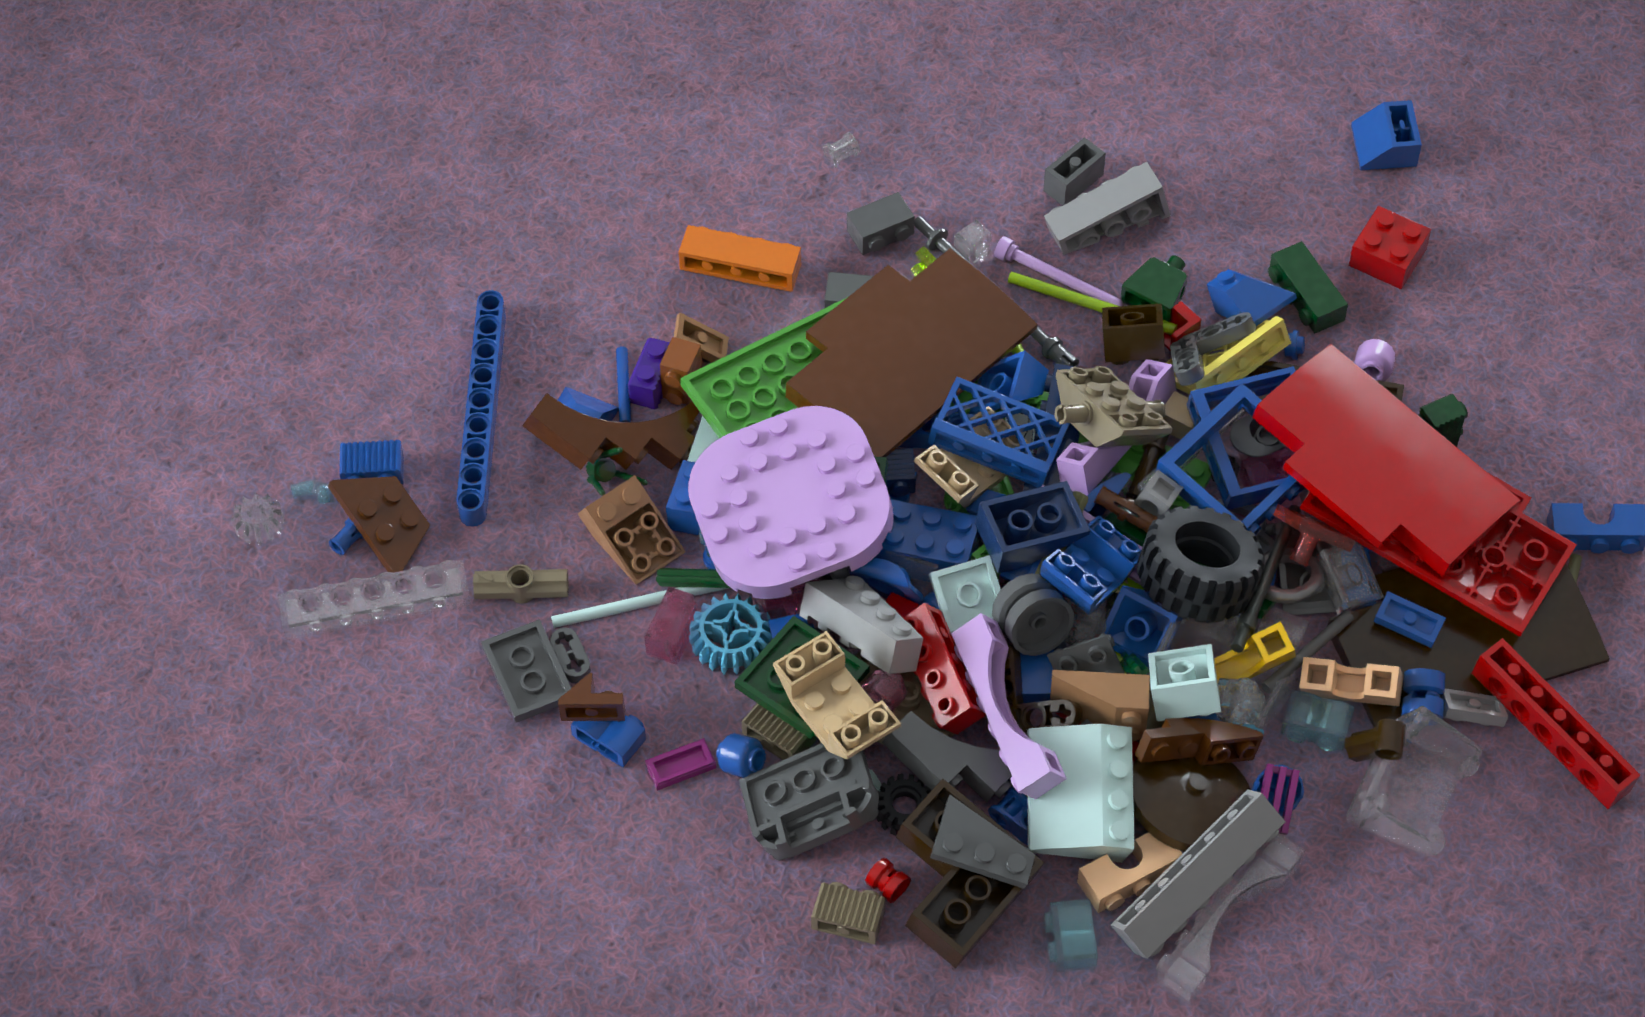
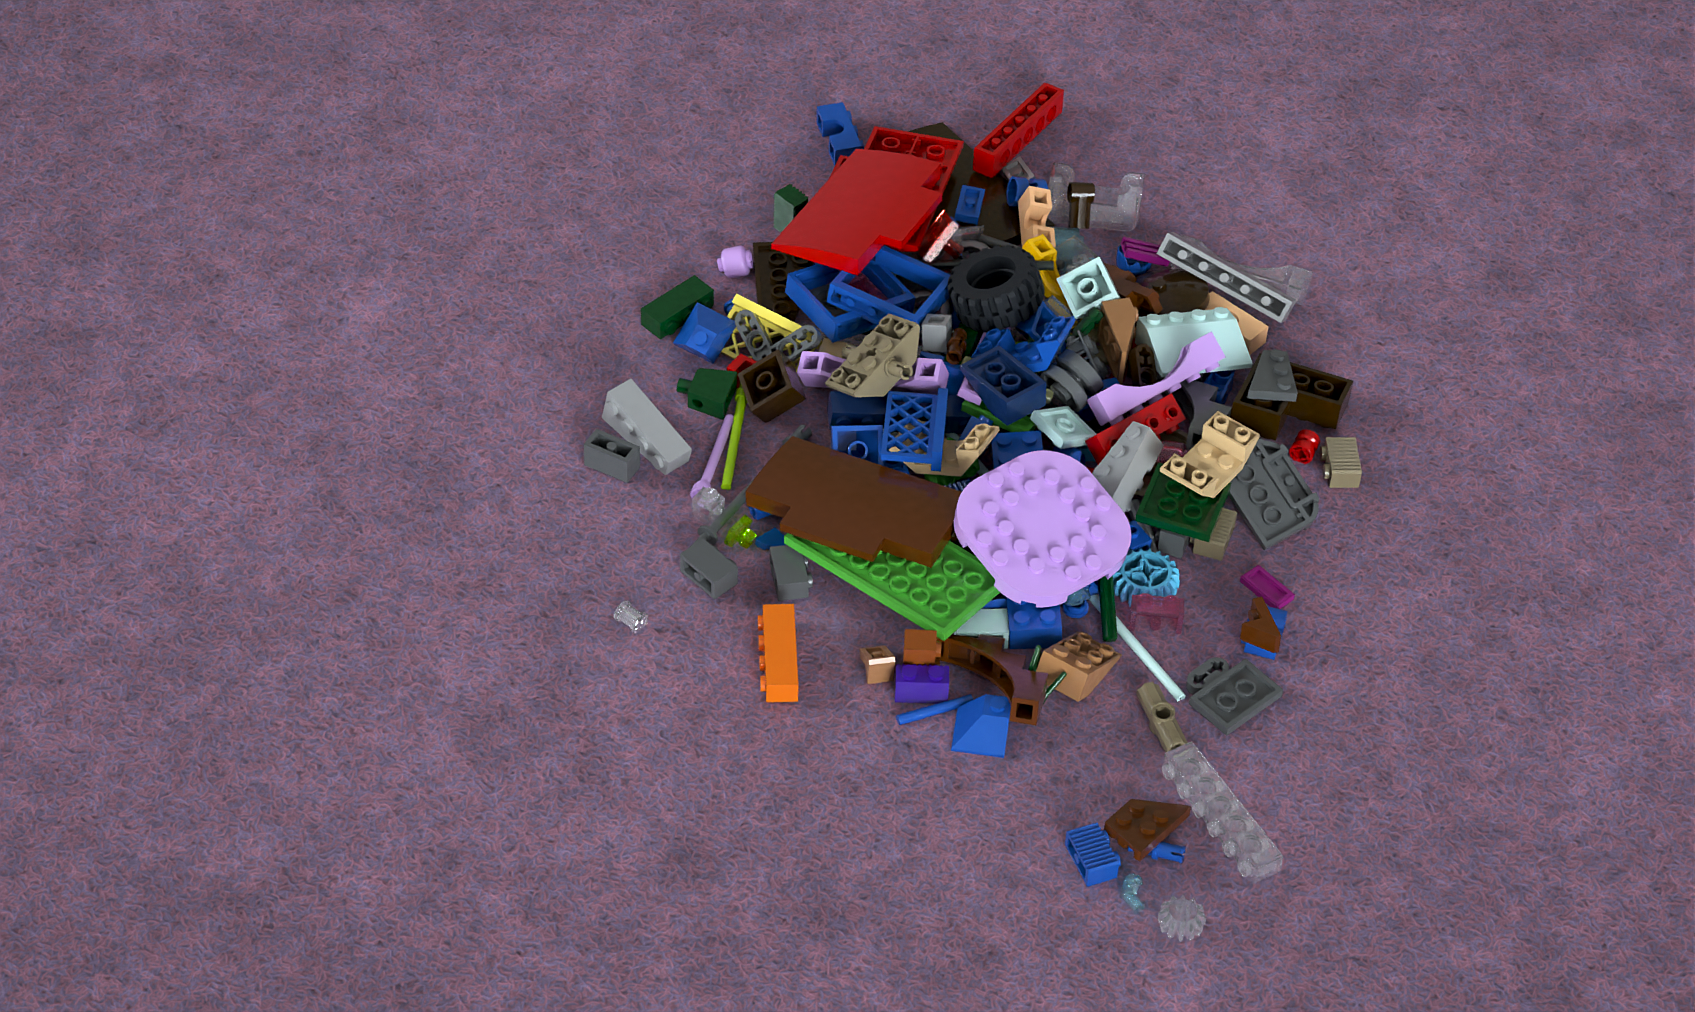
camera: 110 degrees left, 10 degrees down
(489, 319) = (1000, 793): blue beam -> none
(740, 755) = (1247, 547): blue head -> none
(1072, 935) = (1300, 342): clear light blue brick -> none
(1387, 136) = (509, 279): blue slope -> none
(1389, 247) = (622, 266): red brick -> none

